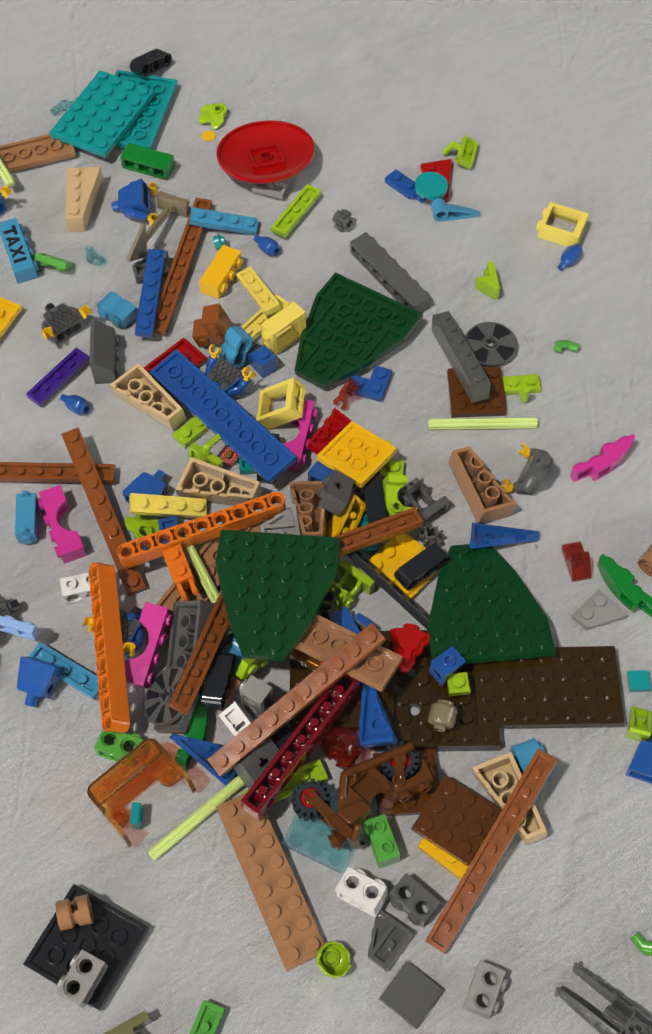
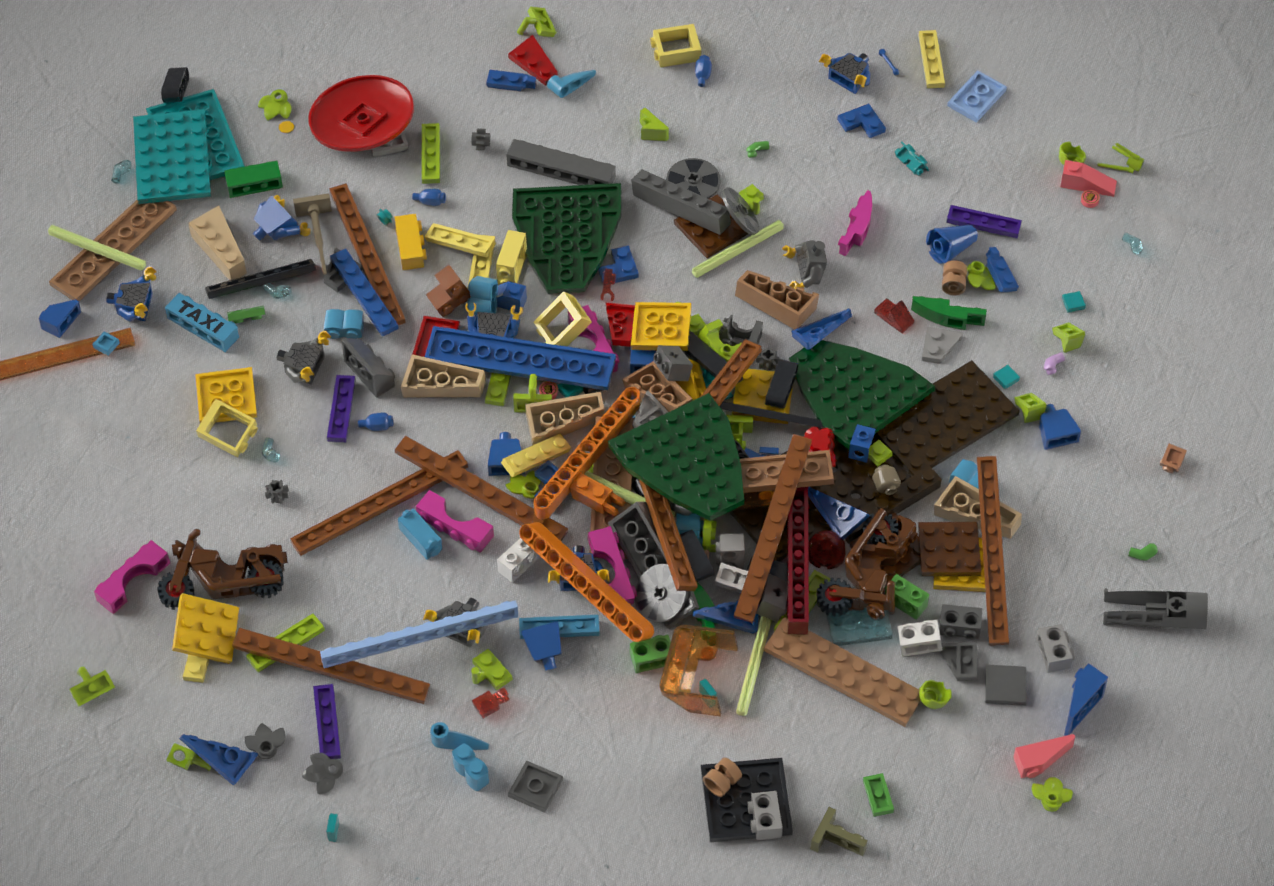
camera: 35 degrees left, 5 degrees down
(84, 239) = (260, 278): none -> black tile
(223, 221) = (373, 196): dark azure plate -> none
(431, 185) = (537, 68): teal tile -> none
(503, 391) = (740, 211): none -> dark grey piece

